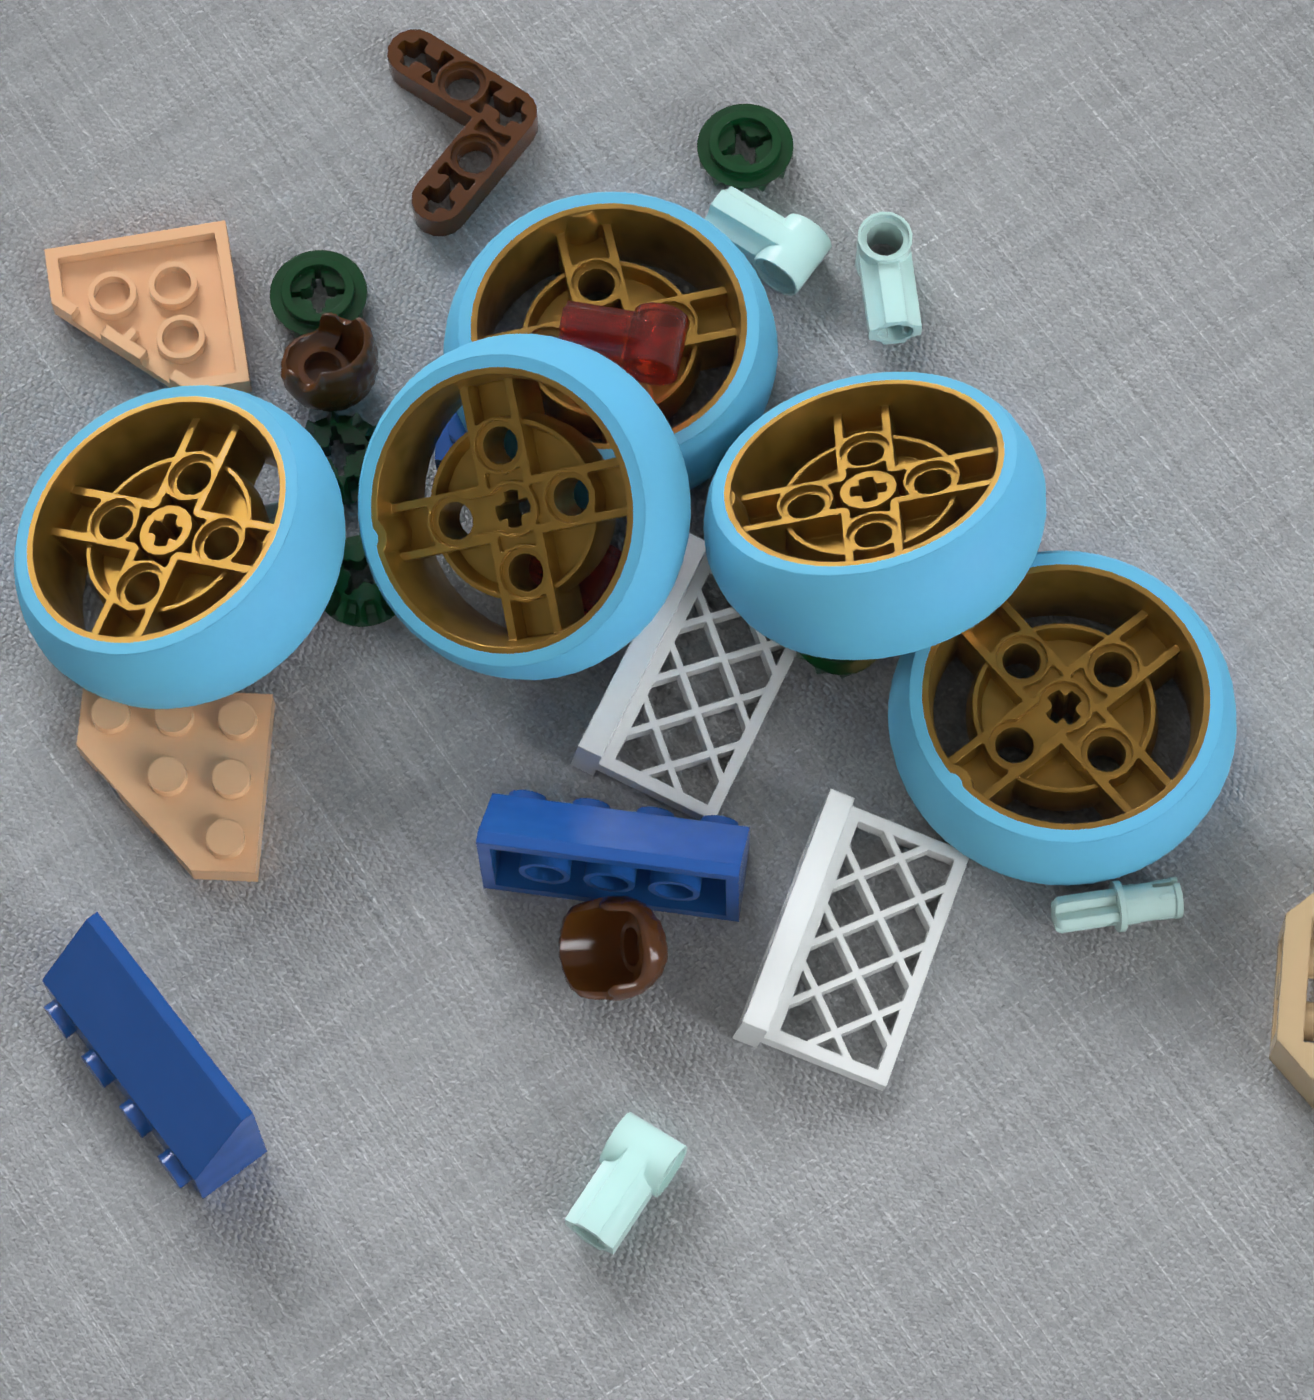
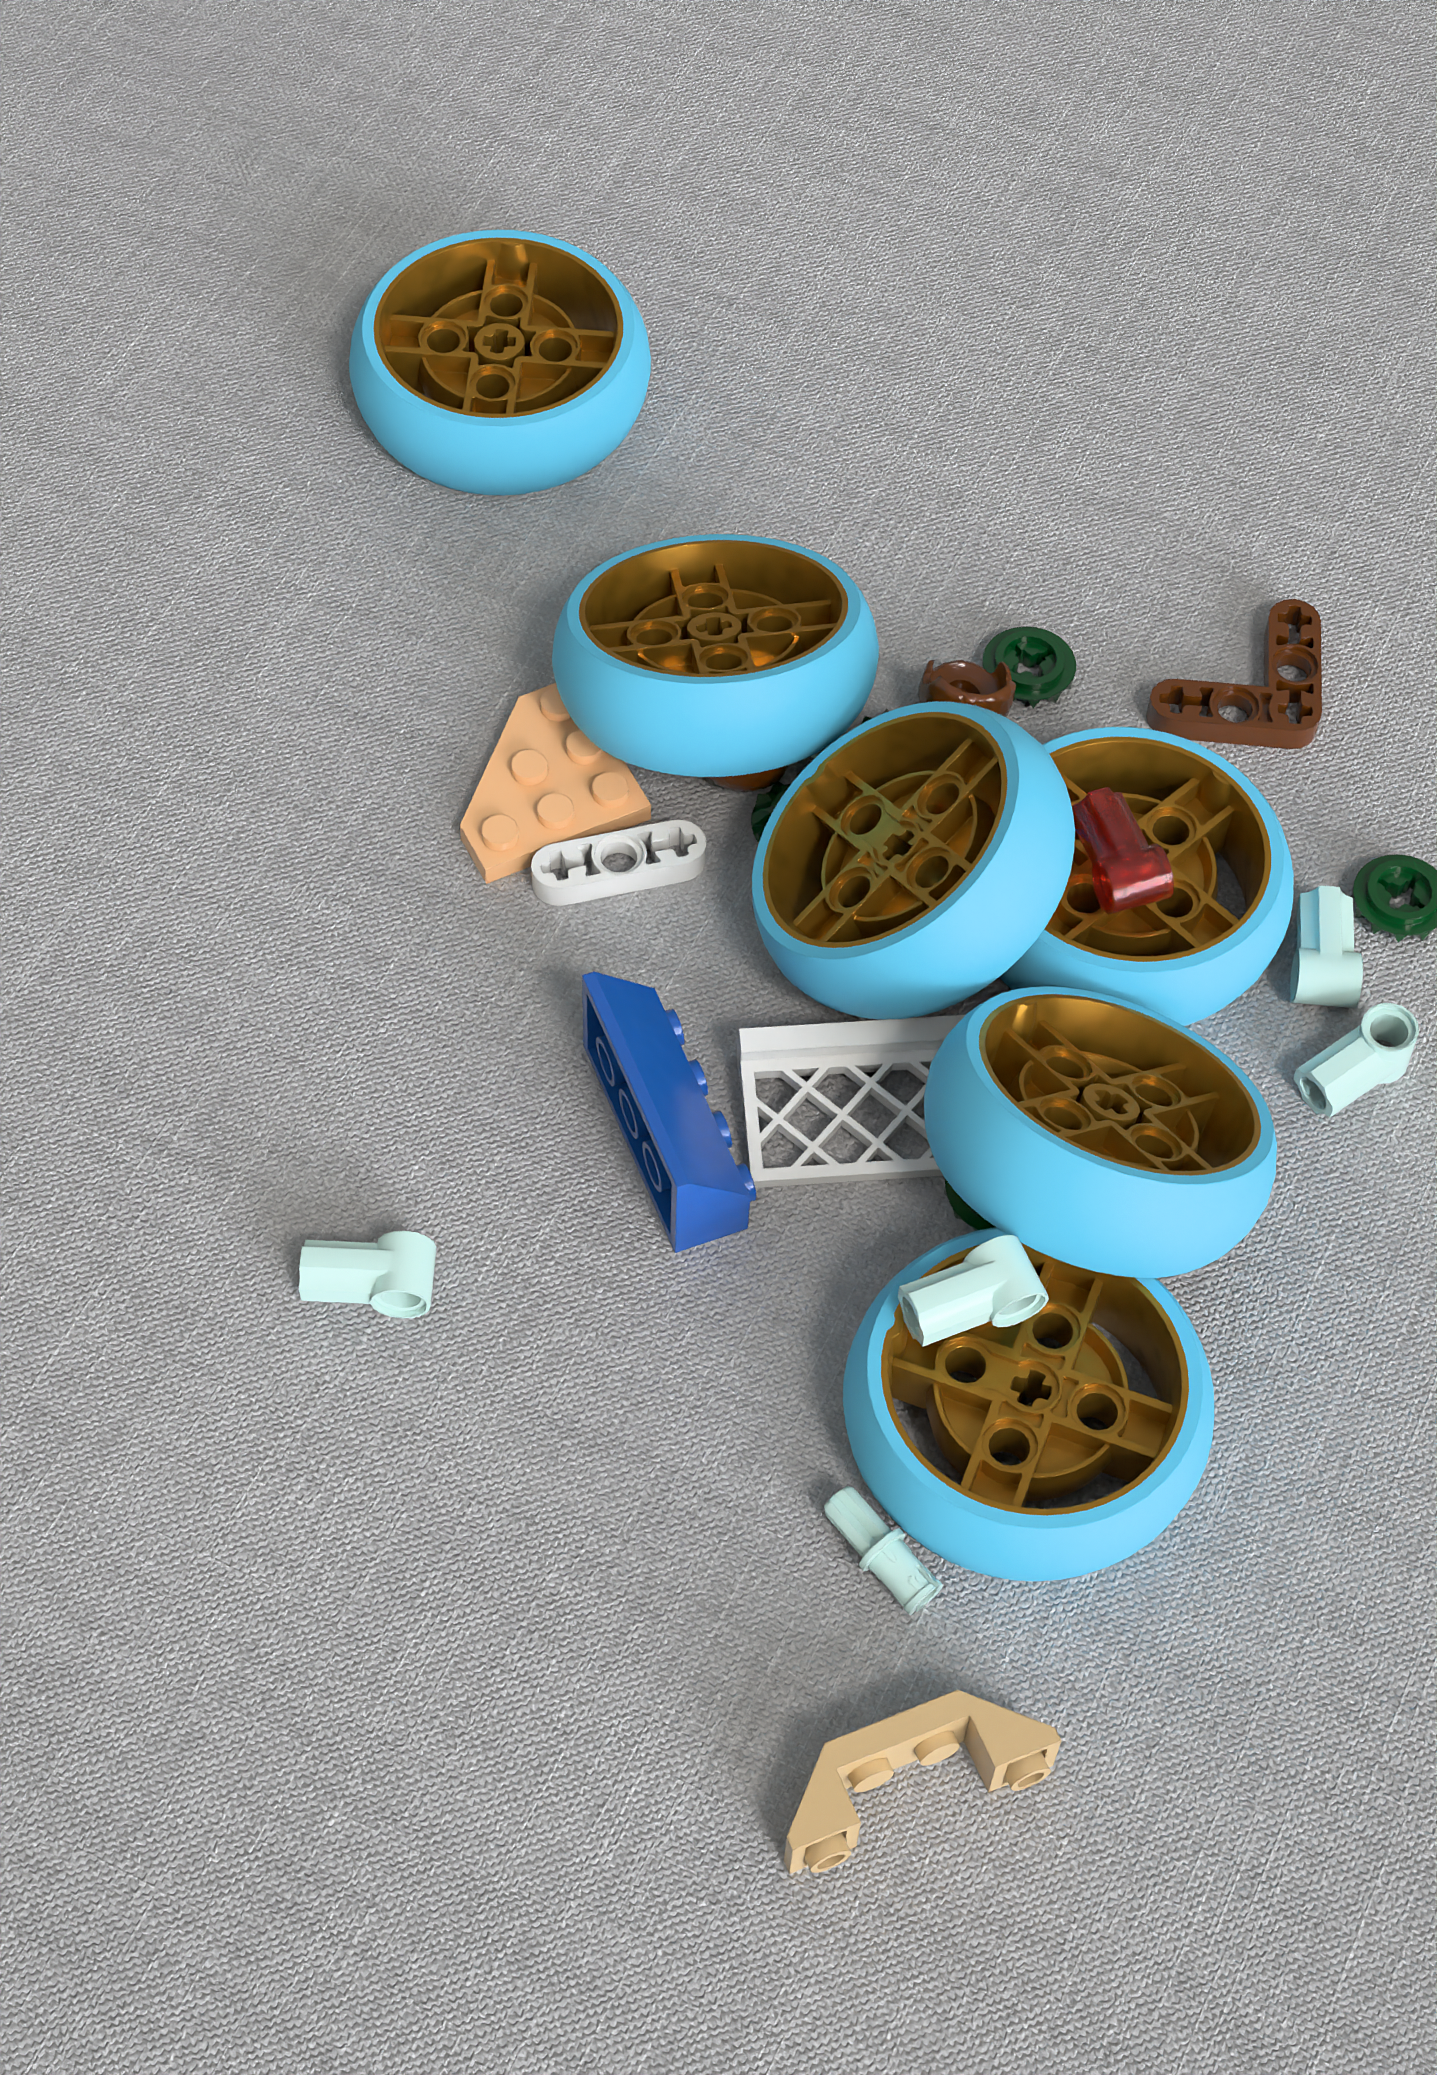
camera: 55 degrees right, 10 degrees down
(151, 1059) = (272, 875): blue slope -> none
(158, 302) = (941, 566): light nougat plate -> none
(317, 802) = (605, 883): none -> white beam
(611, 948) = (576, 1153): reddish brown hair -> none
(798, 925) = (695, 1287): white fence -> none
(982, 685) = (990, 1285): none -> light aqua piece

